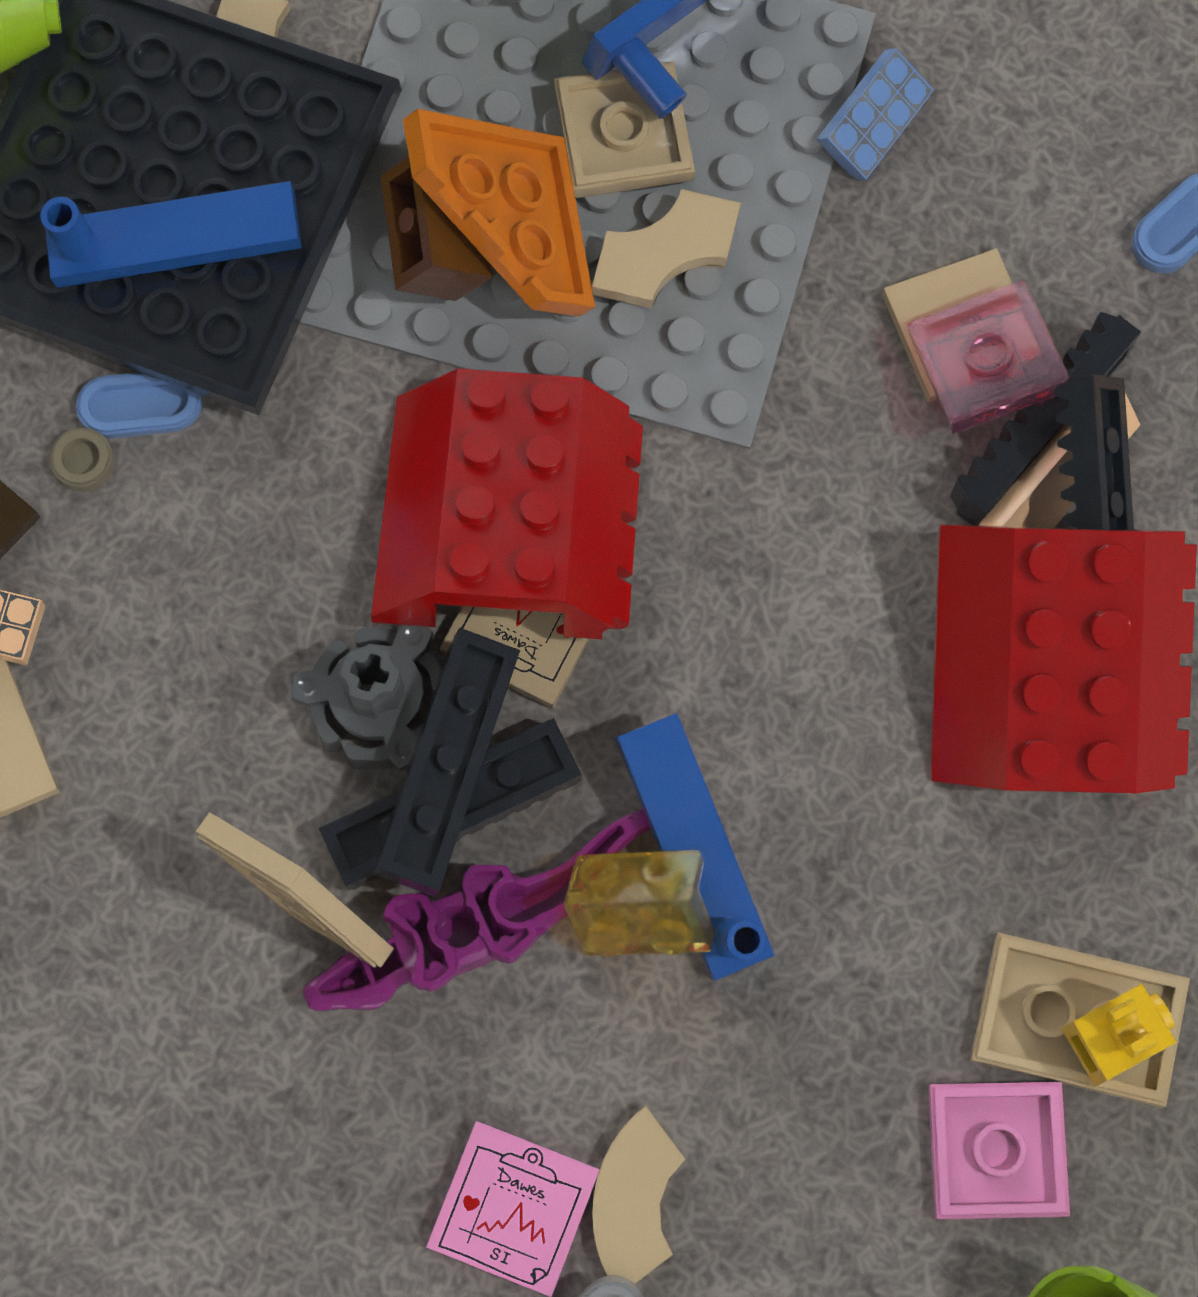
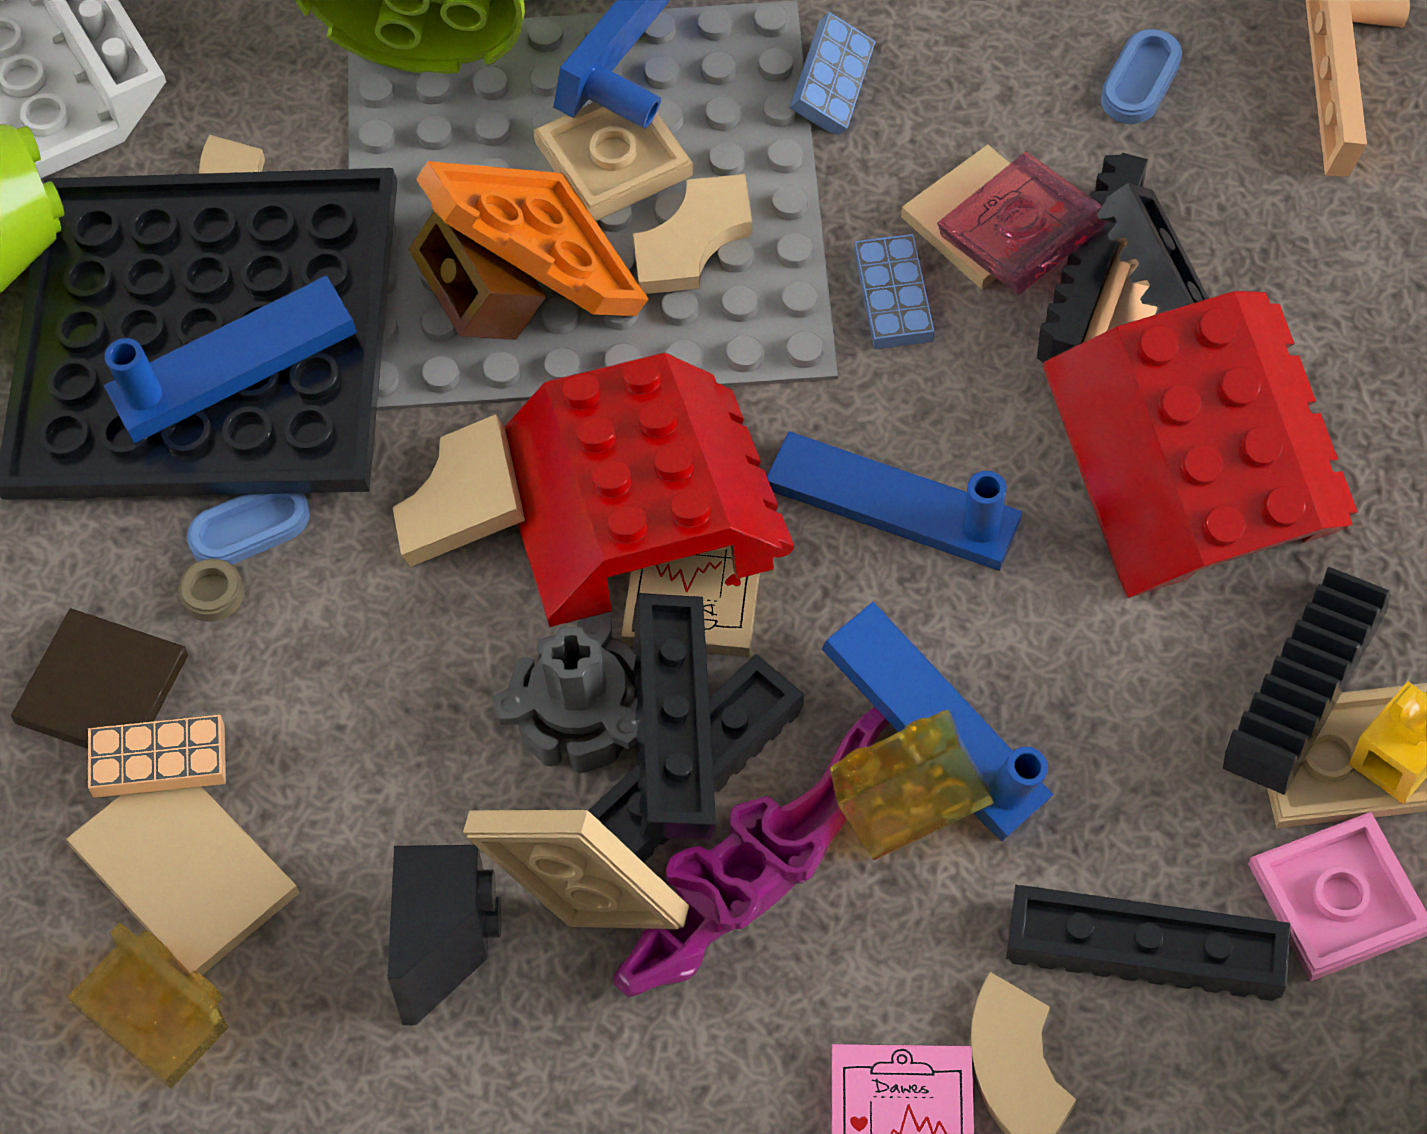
camera: 15 degrees left, 15 degrees down
(157, 886) = (438, 923): none -> black slope
(346, 453) = (465, 497): none -> tan tile
(750, 600) = (899, 502): none -> blue piece
(800, 1132) = (1148, 942): none -> black gear
(840, 376) = (893, 291): none -> medium blue tile
(1057, 934) = (1306, 680): none -> black gear

